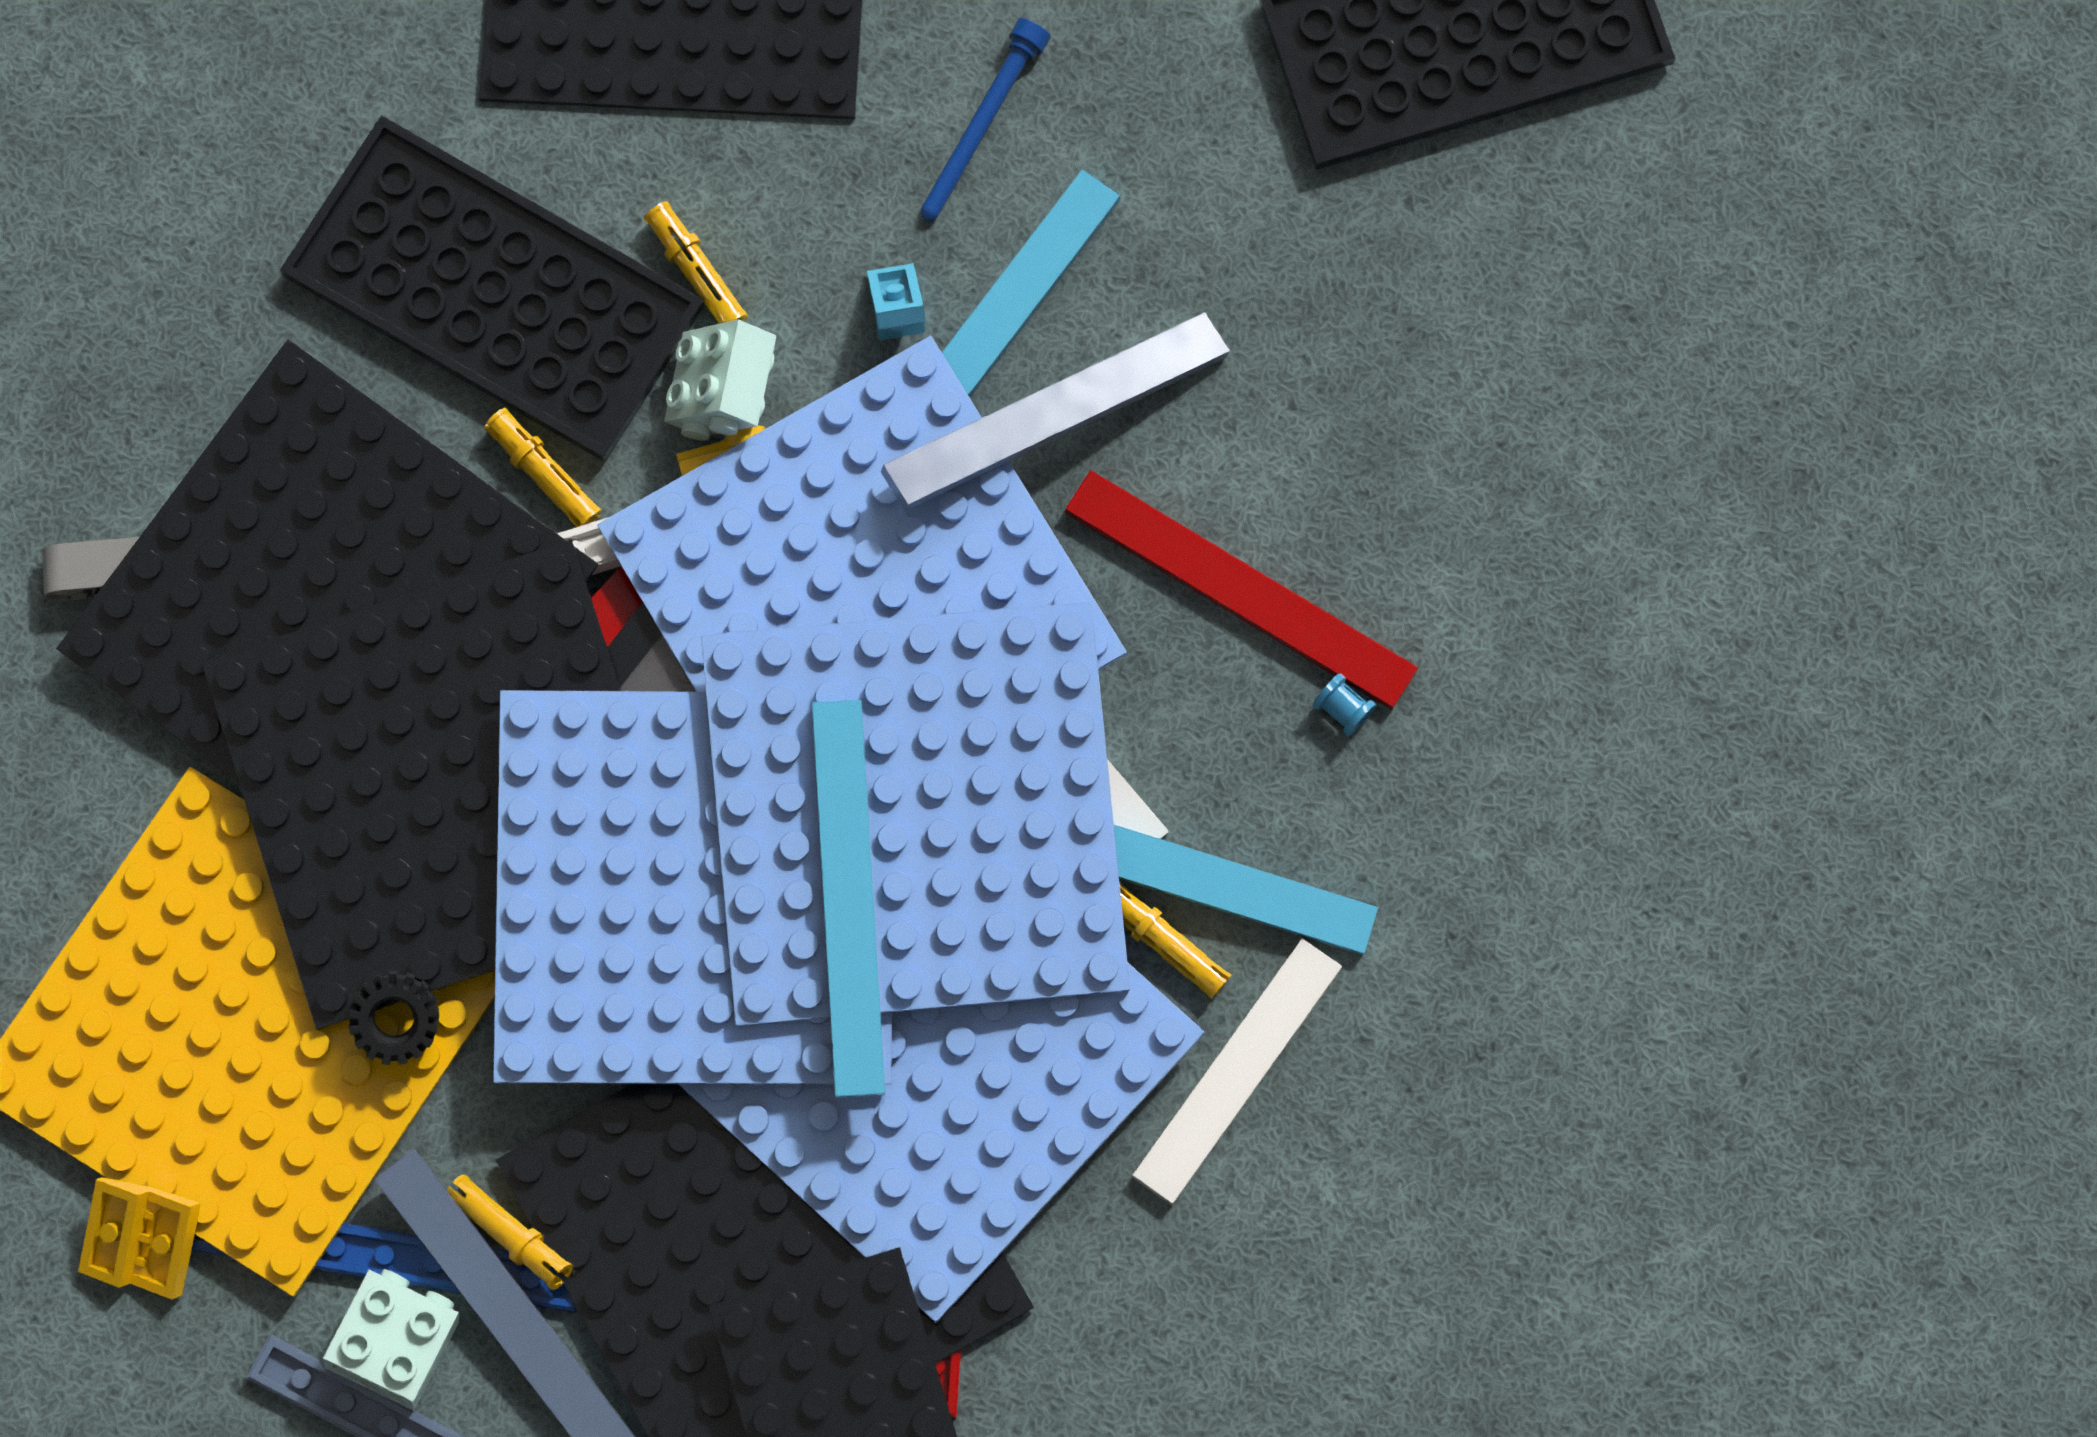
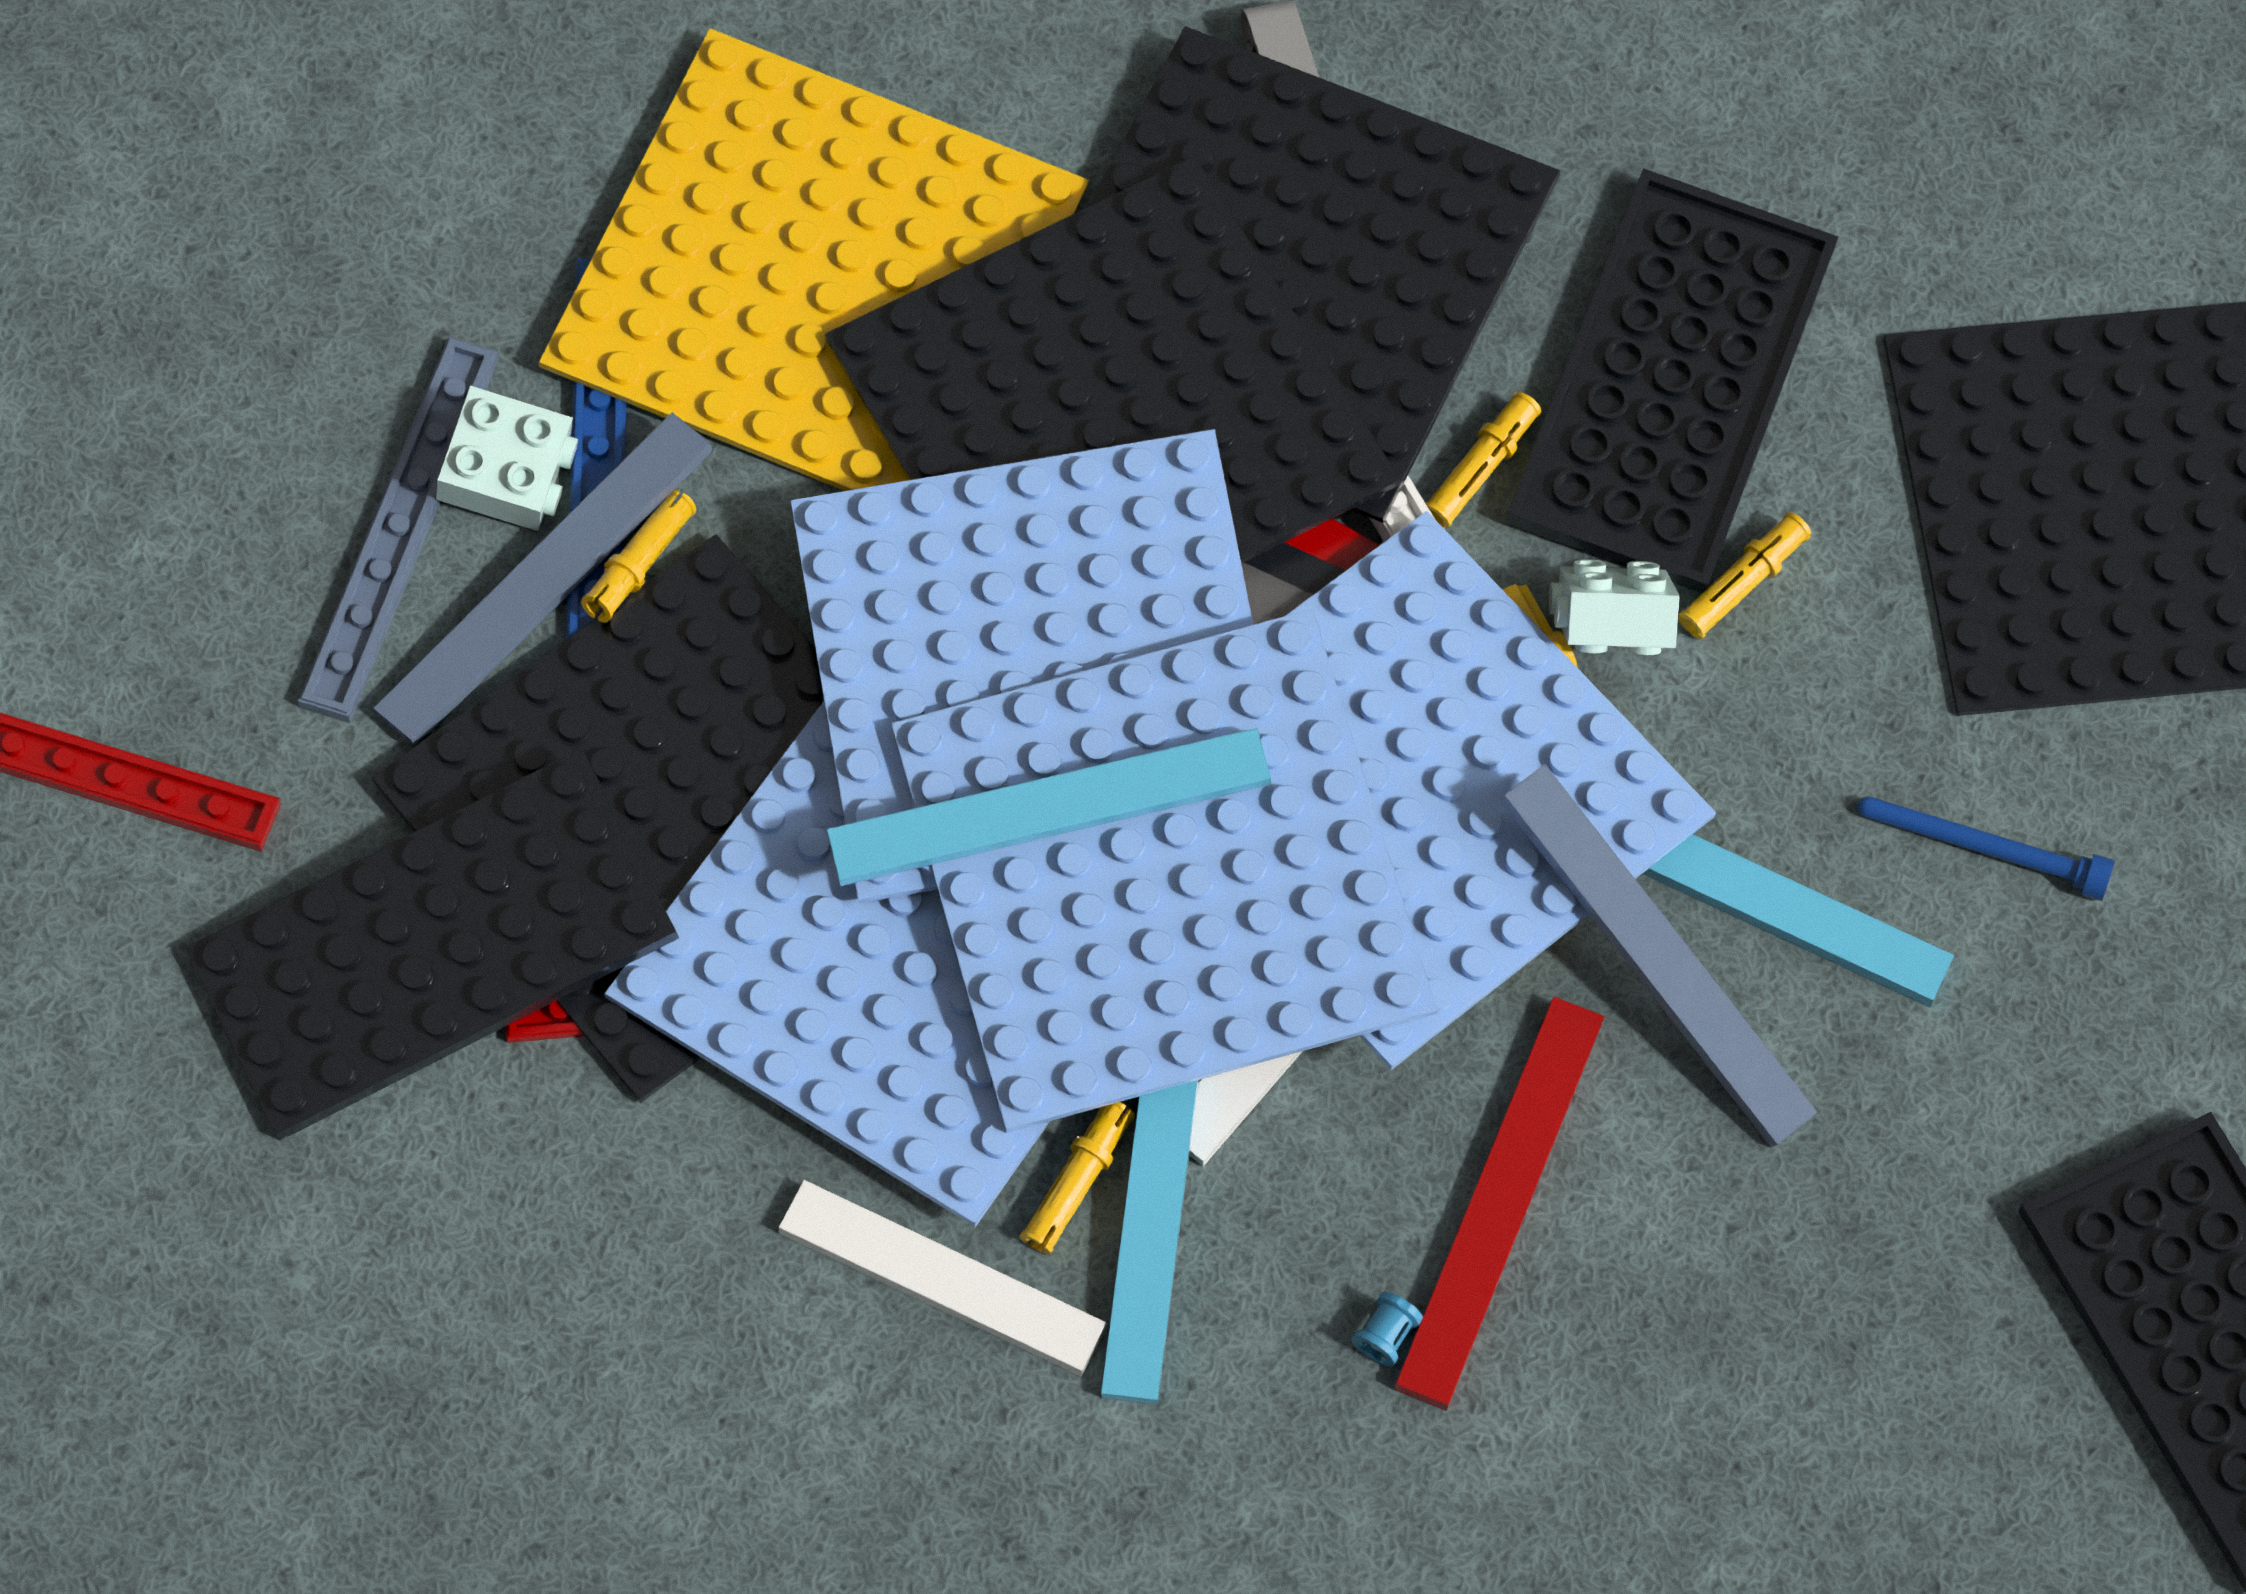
camera: 75 degrees right, 10 degrees down
(139, 1237) = (578, 209): yellow slope -> none
(385, 1046) = (822, 381): black tyre -> none
(896, 301) = (1751, 783): medium azure slope -> none

